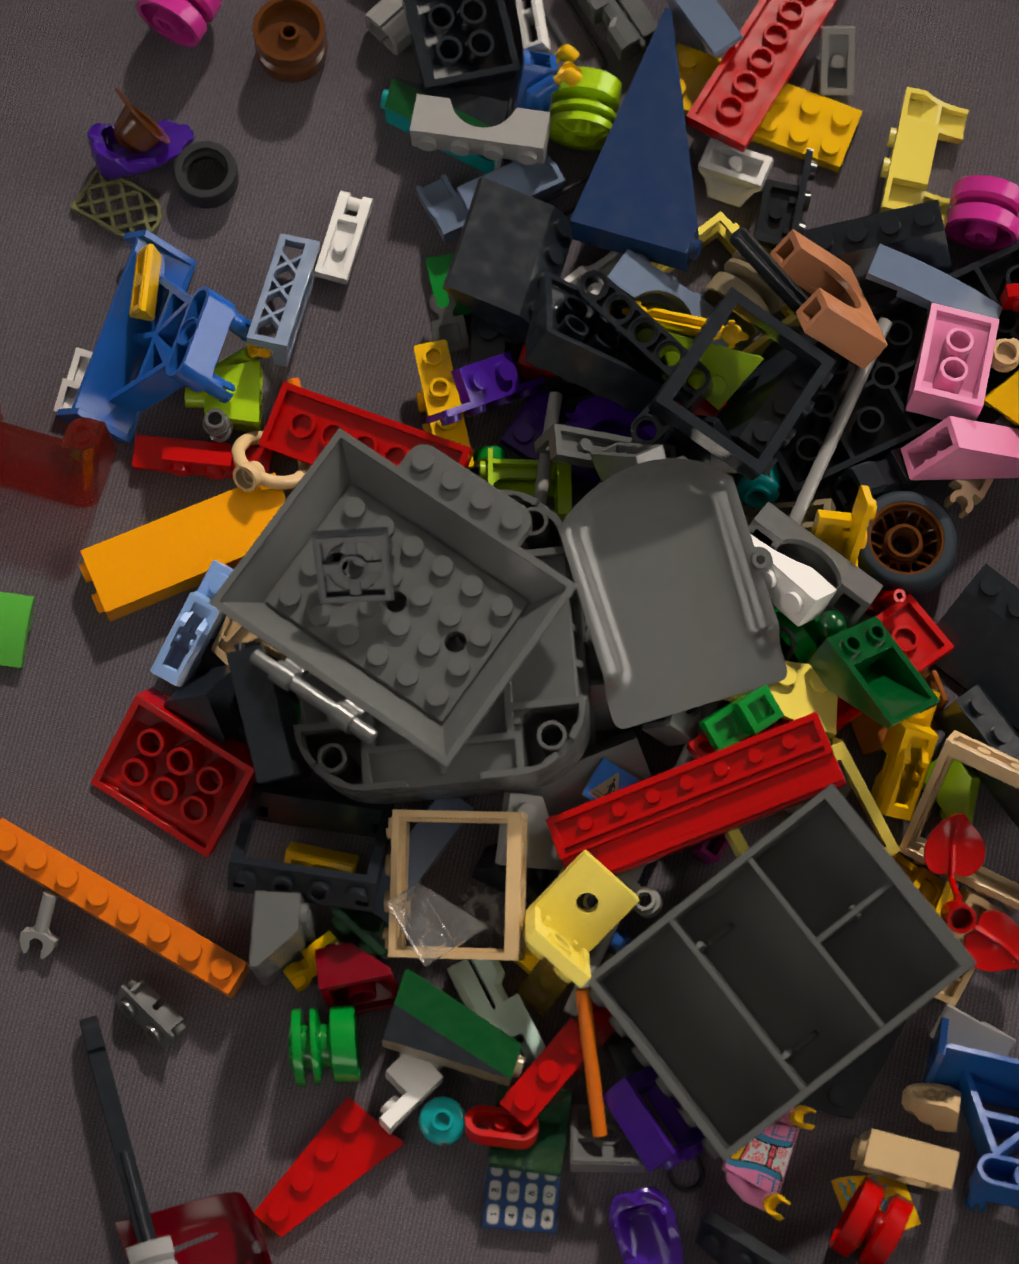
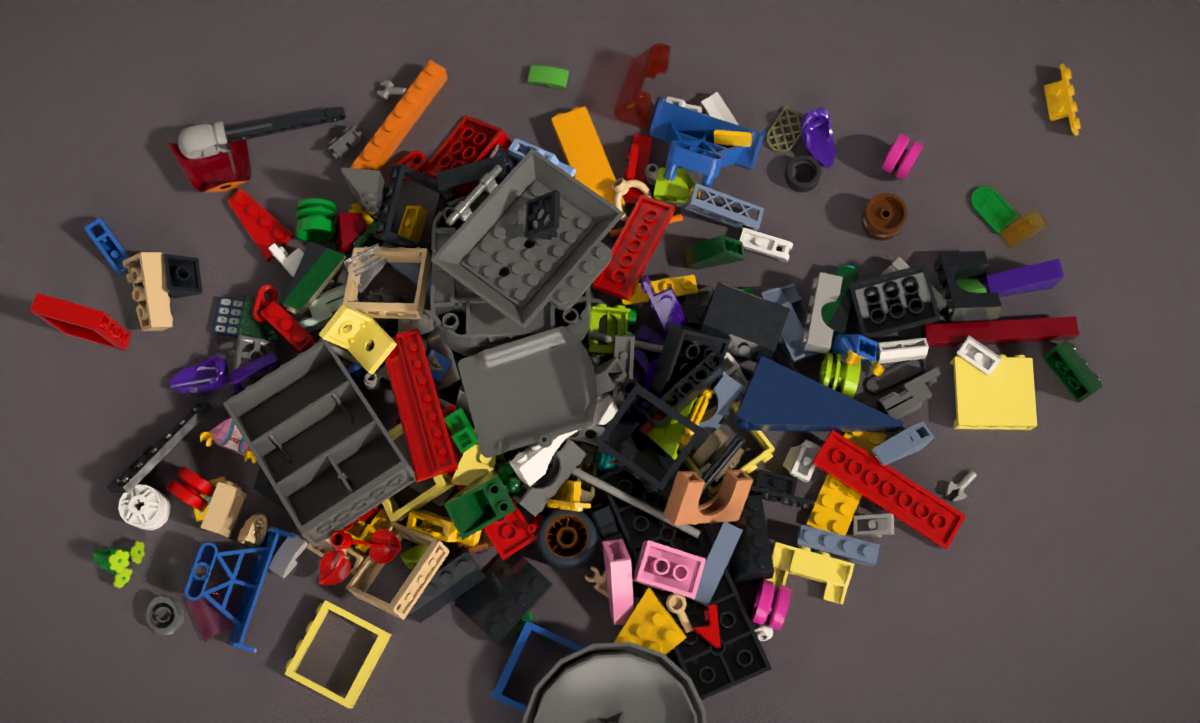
camera: 95 degrees right, 0 degrees up
(83, 321) = (715, 107): none -> white piece
(136, 129) = (828, 133): reddish brown piece -> none
(201, 880) = (411, 158): none -> red plate
(368, 318) = (714, 252): none -> dark green slope
(442, 1121) = (273, 276): teal head -> none
(591, 1062) = (286, 345): orange bar -> none
(874, 119) = (836, 544): none -> sand blue arch

